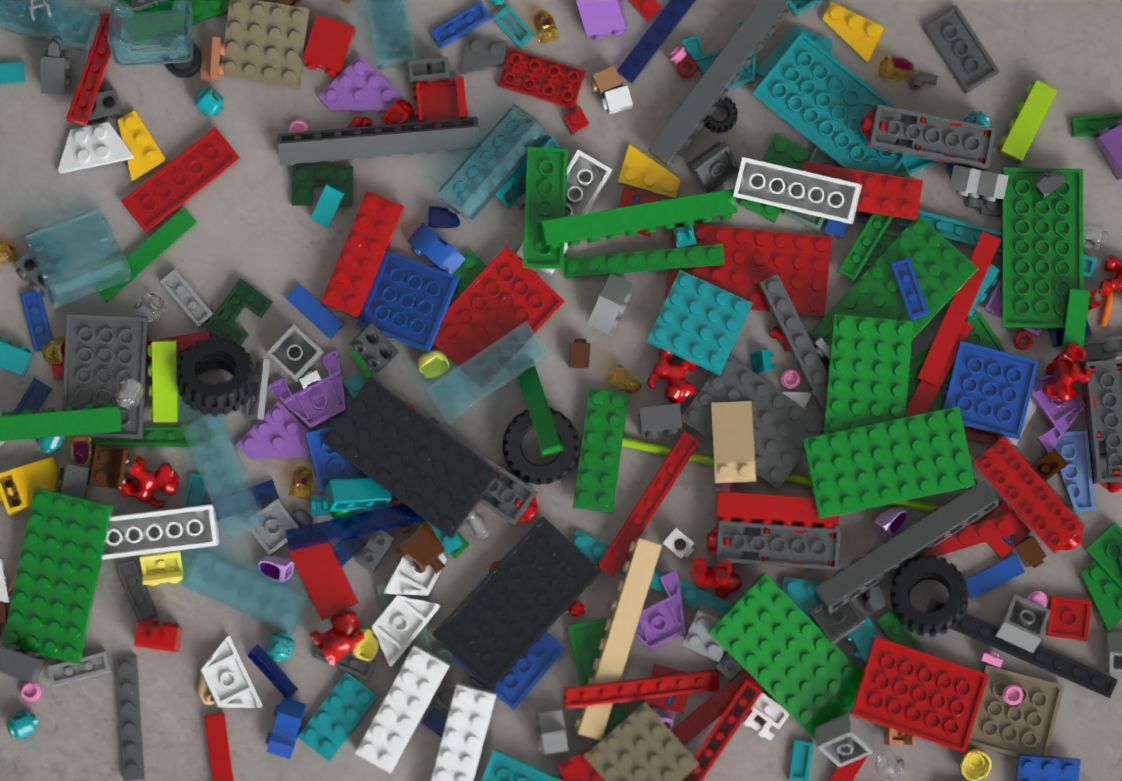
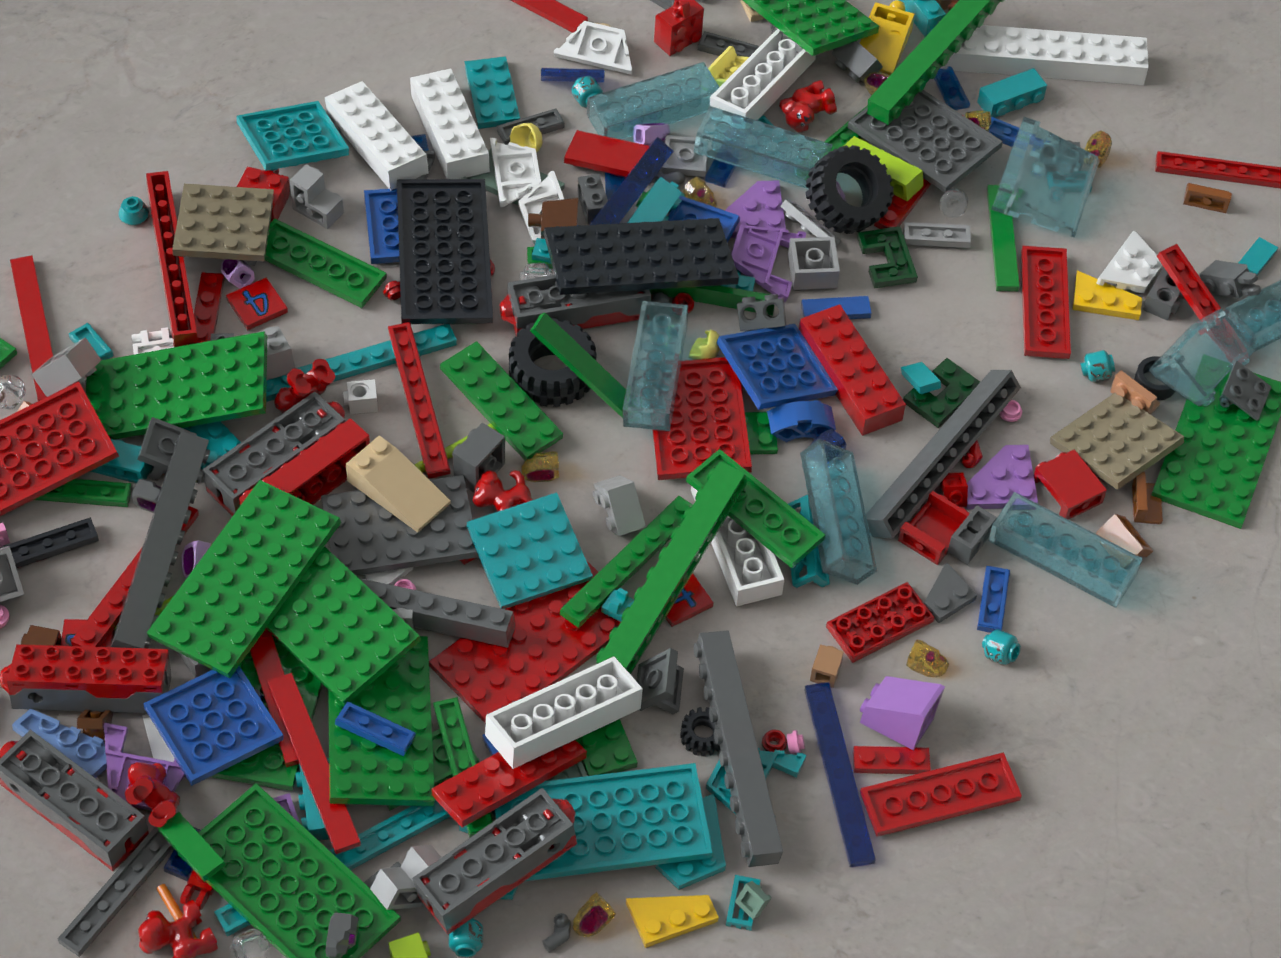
camera: 135 degrees right, 30 degrees down
(108, 467) = (848, 90): reddish brown bracket -> none
(129, 393) = (893, 129): clear head -> none
(286, 727) = (521, 52): blue brick -> none
(310, 378) = (781, 260): white plate -> none
(340, 638) = (556, 136): red animal -> none
(502, 14) = (953, 641): teal tile -> none
(576, 120) = (813, 617): red plate -> none
(579, 354) = (599, 452): reddish brown brick -> none
(617, 100) = (799, 660): white brick -> none
(619, 631) = (337, 289): tan brick -> none
(640, 689) = (279, 266): red tile -> none
(646, 174) = (715, 619): yellow wing -> none
(664, 619) = (317, 331): medium lavender wing -> none
(761, 361) = (441, 577): teal tile -> none
(923, 570) = (105, 497): black tyre -> none
(994, 576) = (59, 599): blue tile -> none
(1029, 340) = (221, 799): red plate -> none

